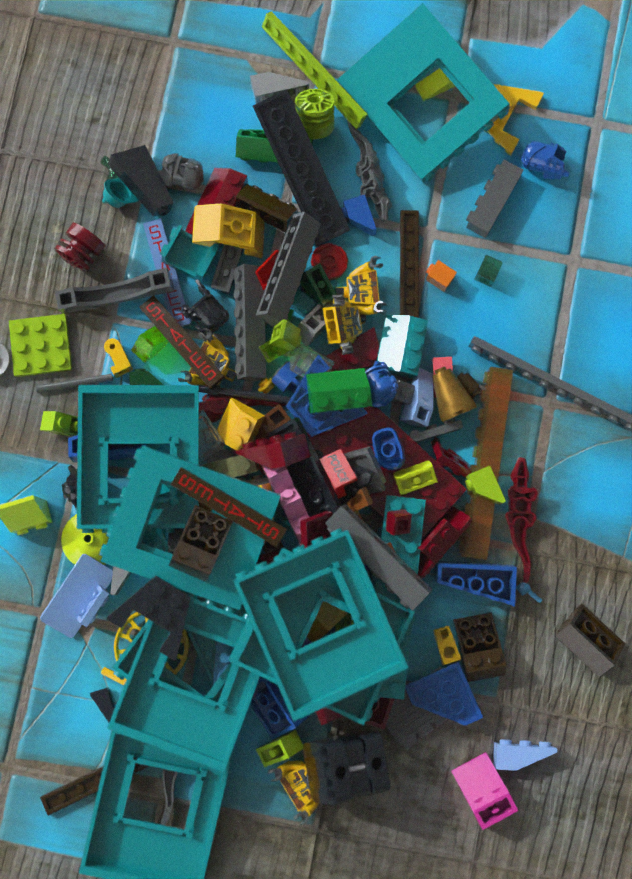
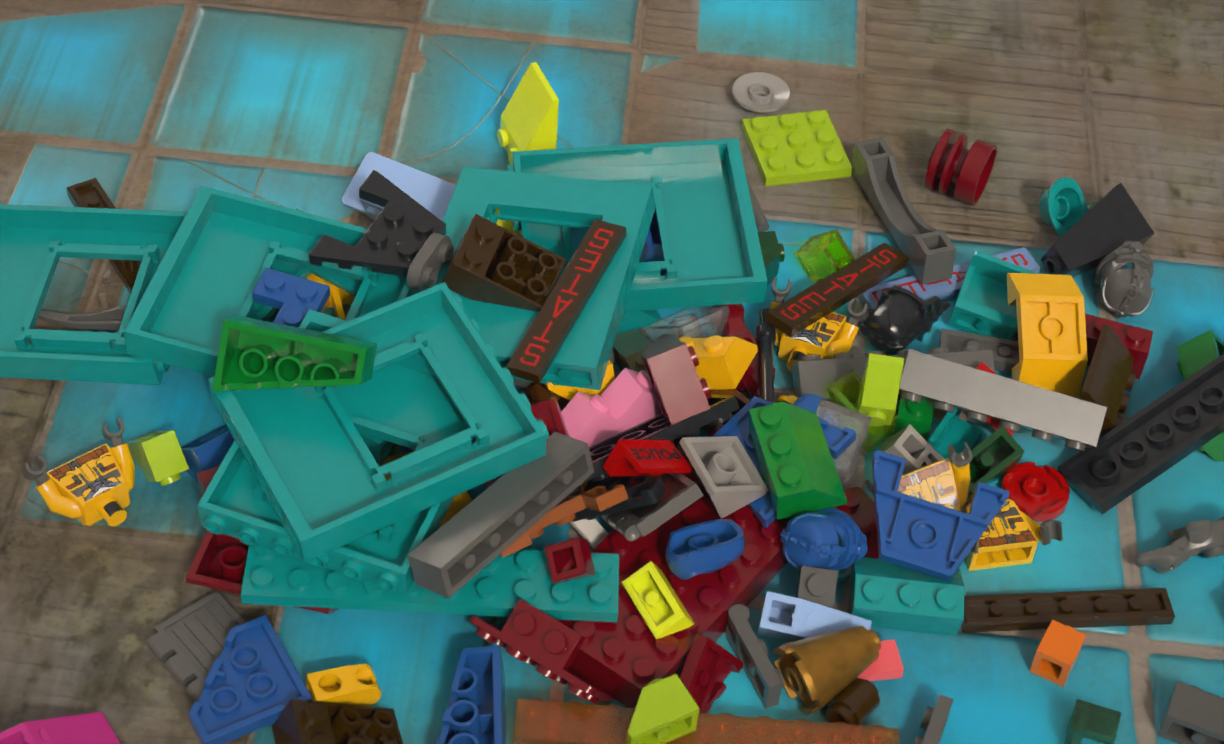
camera: 85 degrees right, 35 degrees down
(119, 357) = (796, 227): yellow leg -> none
(180, 582) = (429, 262): none -> dark grey plate
(208, 666) = (291, 295): none -> blue plate
(292, 672) = (281, 356): none -> green wedge
(340, 431) = (724, 472): none -> light grey slope
(346, 767) = (121, 510): black piece -> none
(359, 214) = (1138, 524): blue slope -> none
(383, 328) = (924, 533): none -> blue wing

